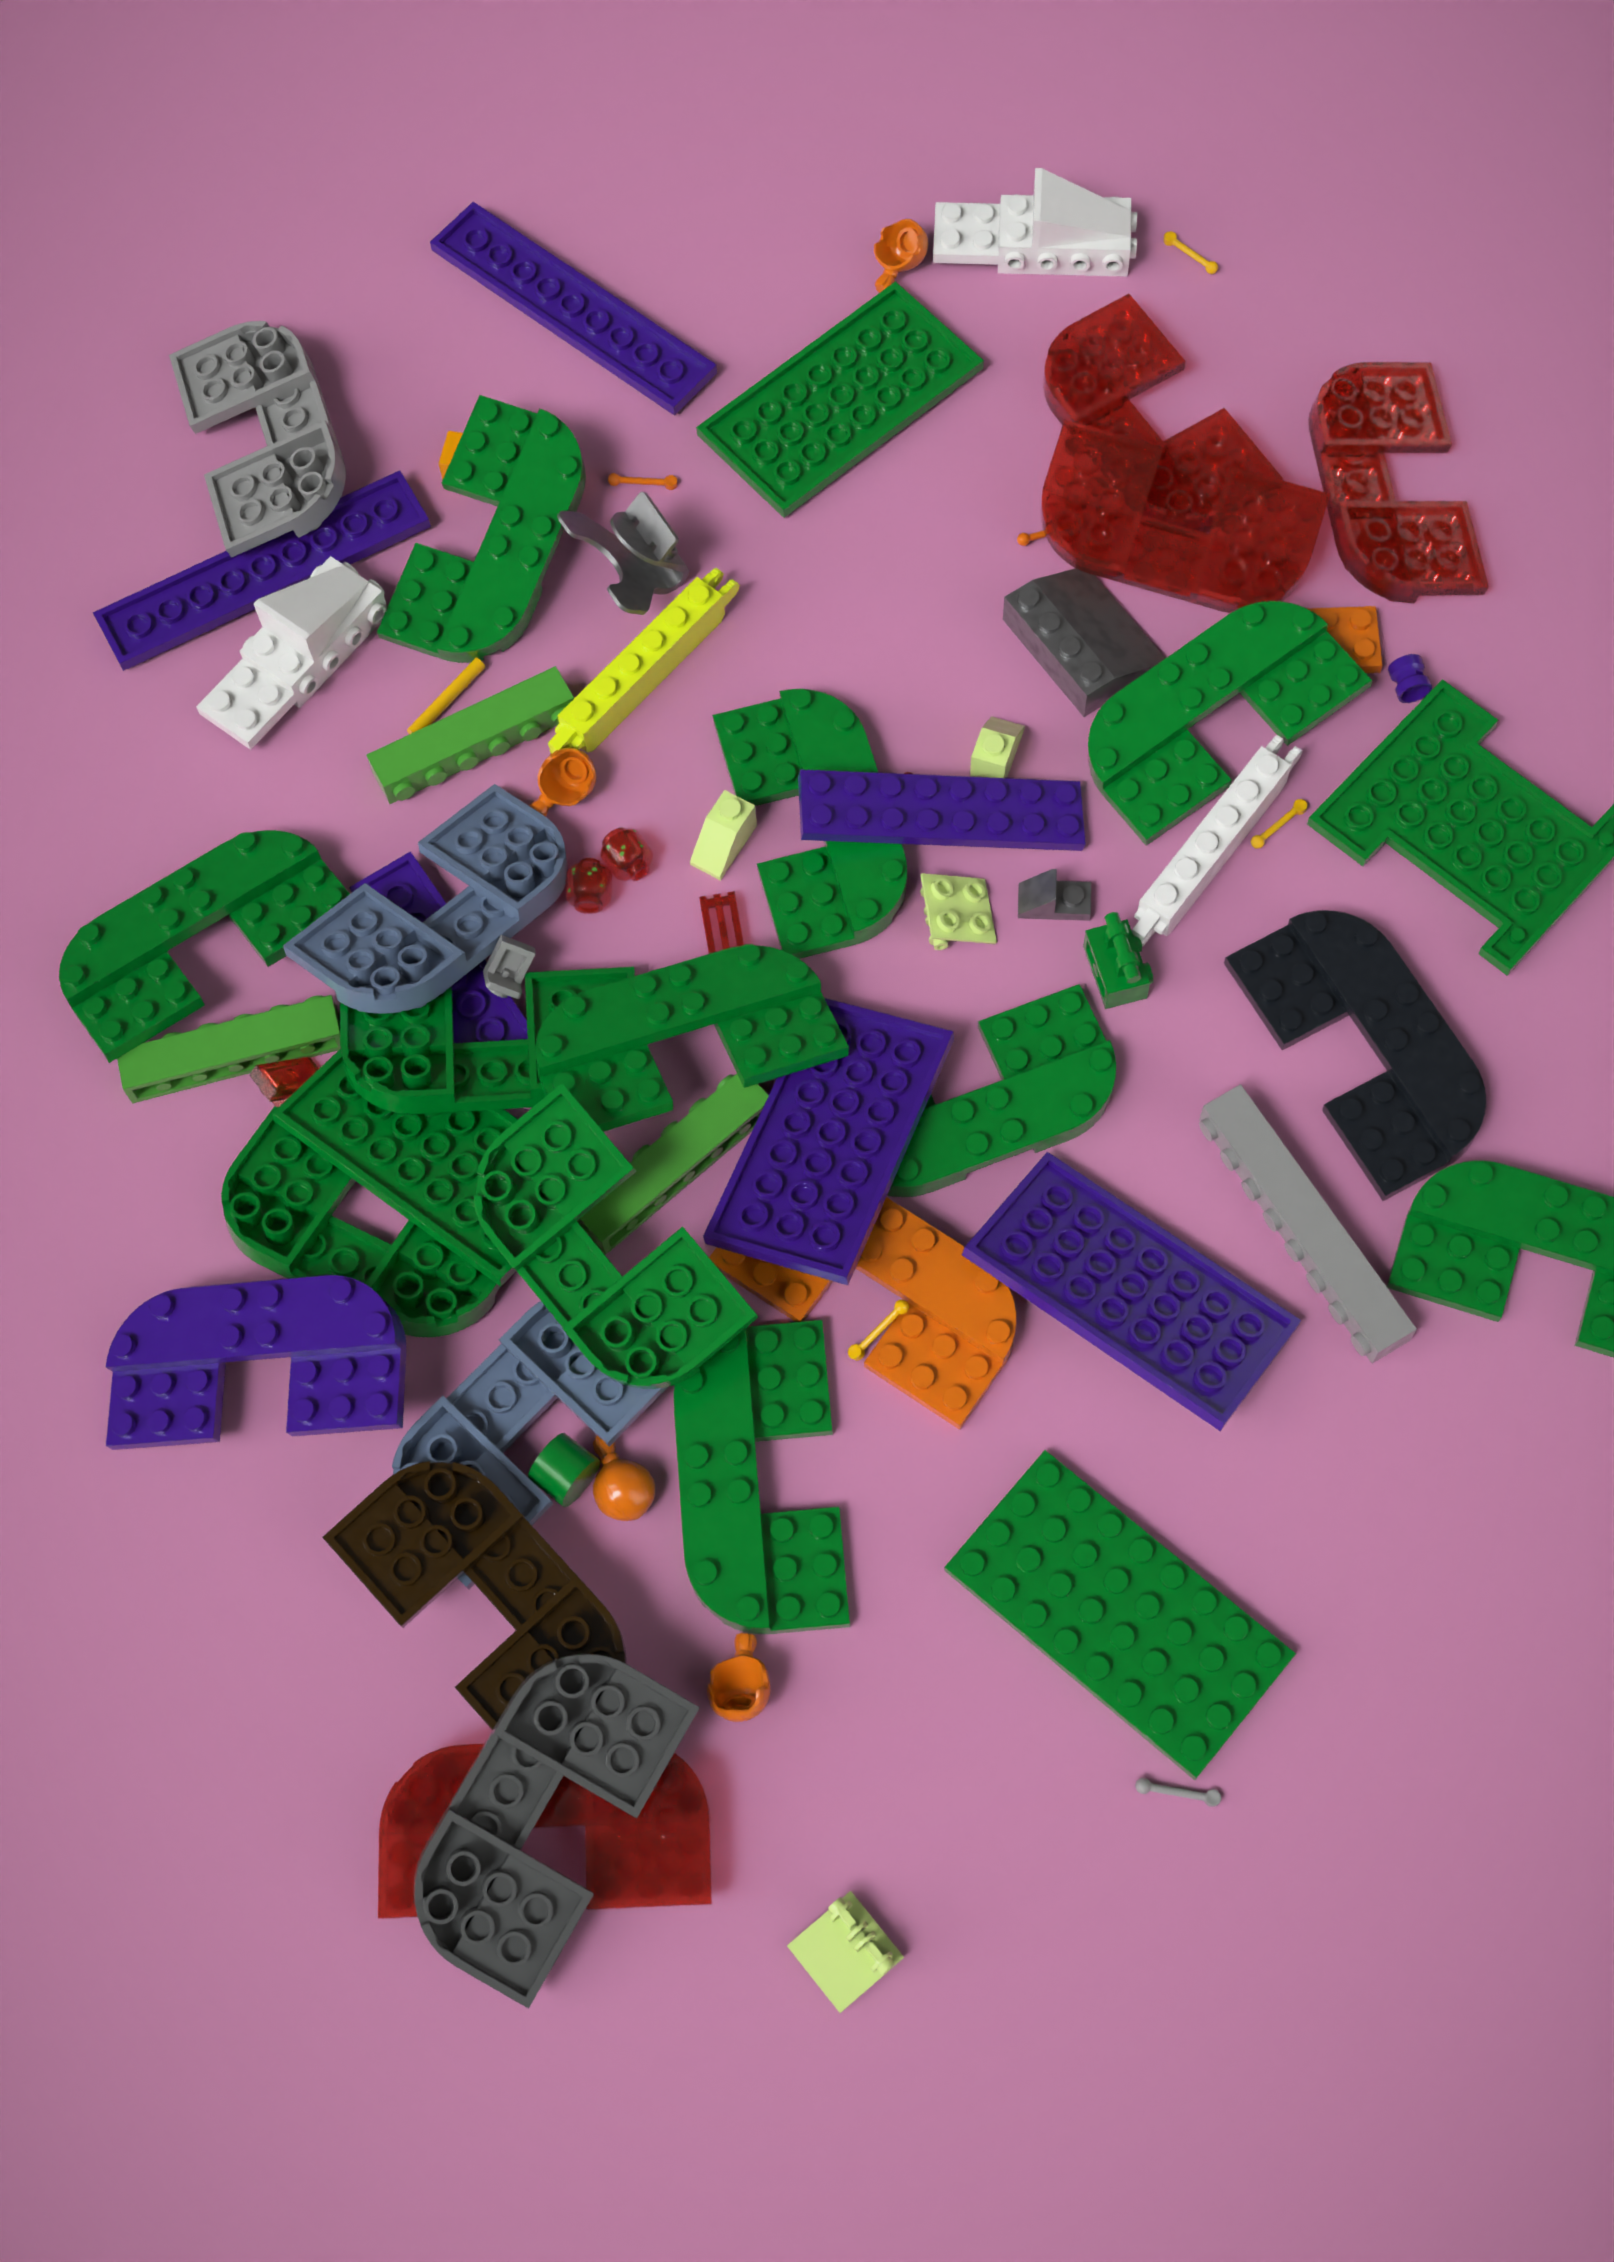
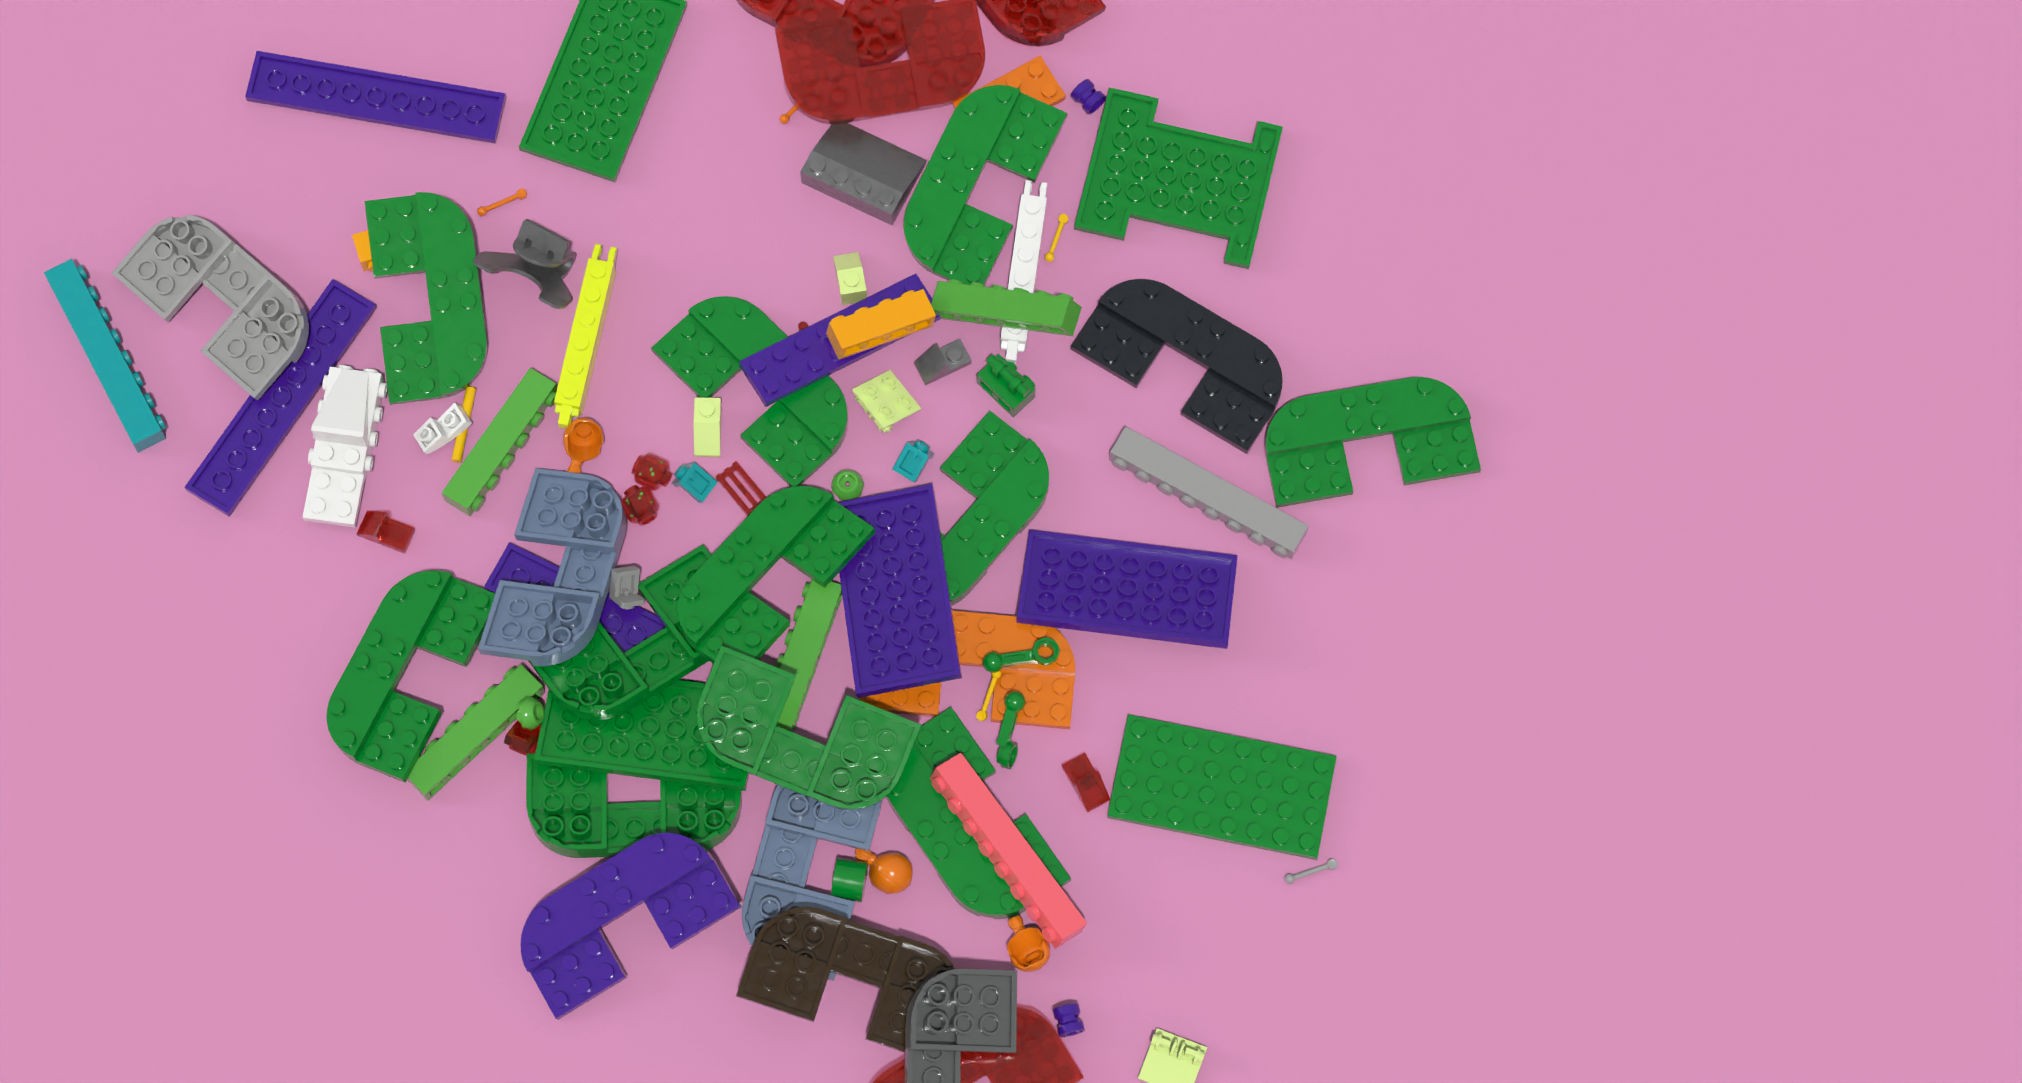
camera: 35 degrees left, 5 degrees up
(104, 437) = (105, 356): none -> teal brick
(284, 773) = (385, 531): none -> clear red slope
(302, 1056) = (530, 713): none -> bright green plate
(411, 692) = (439, 432): none -> white slope
(670, 890) = (694, 481): none -> teal bracket
(738, 1813) = (1069, 1022): none -> dark purple wheel
(783, 1544) = (1007, 851): none -> coral brick
(858, 995) = (849, 492): none -> bright green plate
(862, 1414) = (1008, 750): none -> green piece
(905, 1290) = (995, 662): none -> green piece
(941, 1509) = (1086, 782): none -> clear red slope
(950, 995) = (913, 460): none -> teal bracket
(998, 810) = (880, 323): none -> light orange brick
(1166, 864) = (1006, 307): none -> bright green brick

